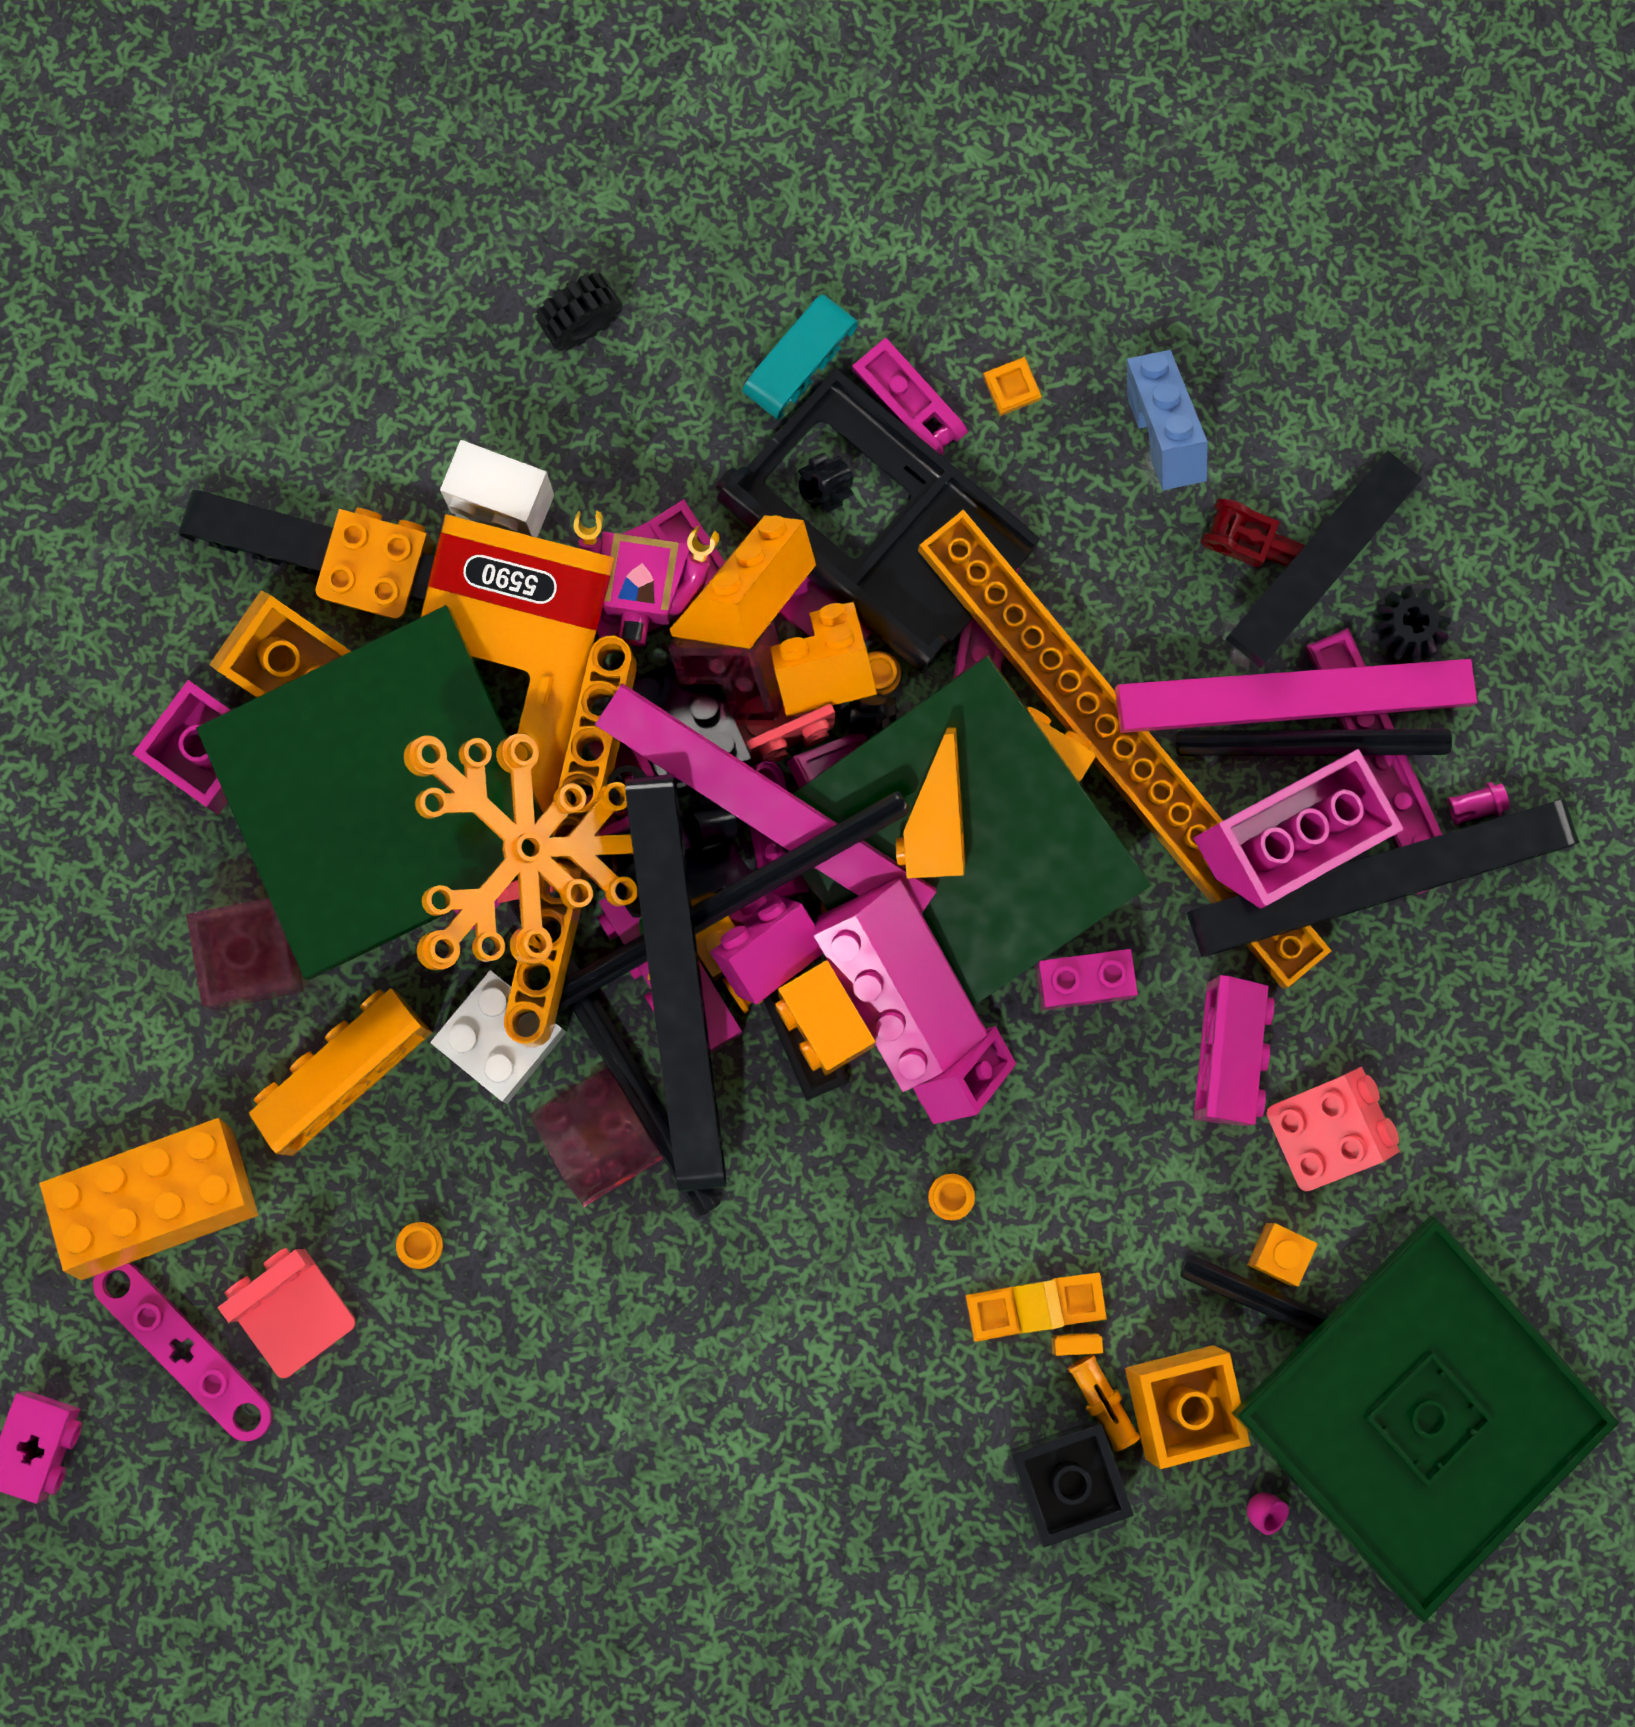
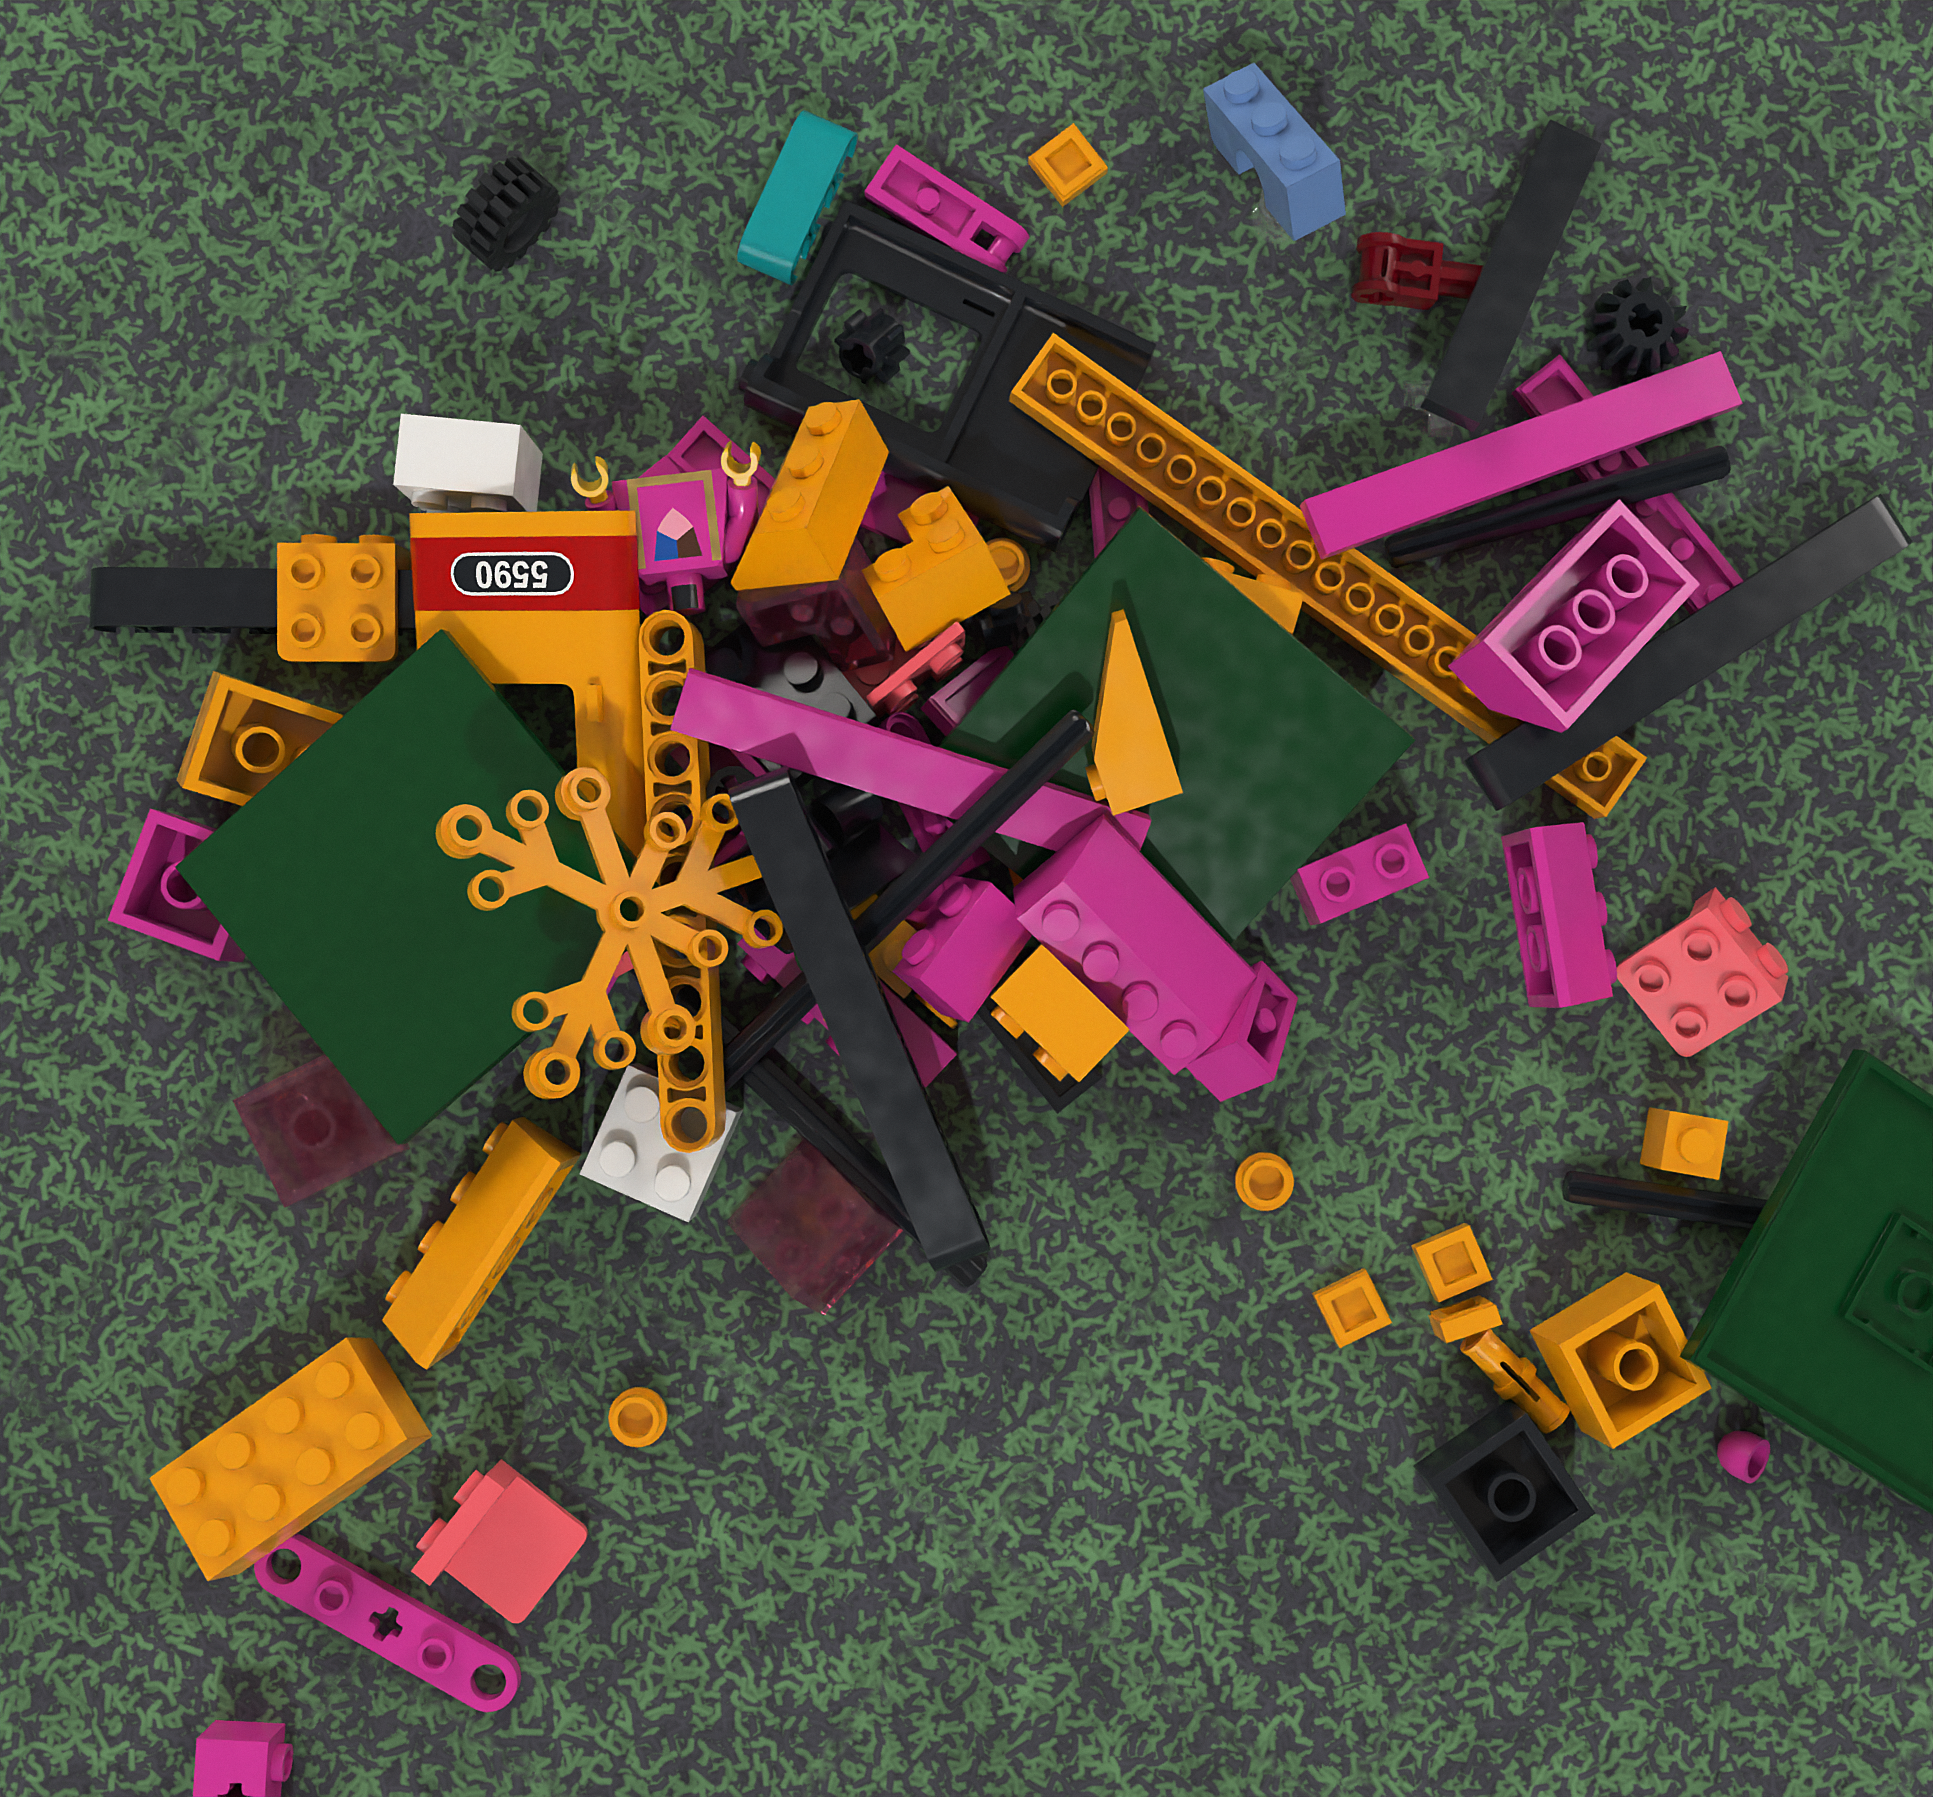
camera: 15 degrees left, 5 degrees up
(1038, 1306) = (1405, 1286): yellow tile -> none
(1479, 803) = (1788, 519): dark pink pin -> none

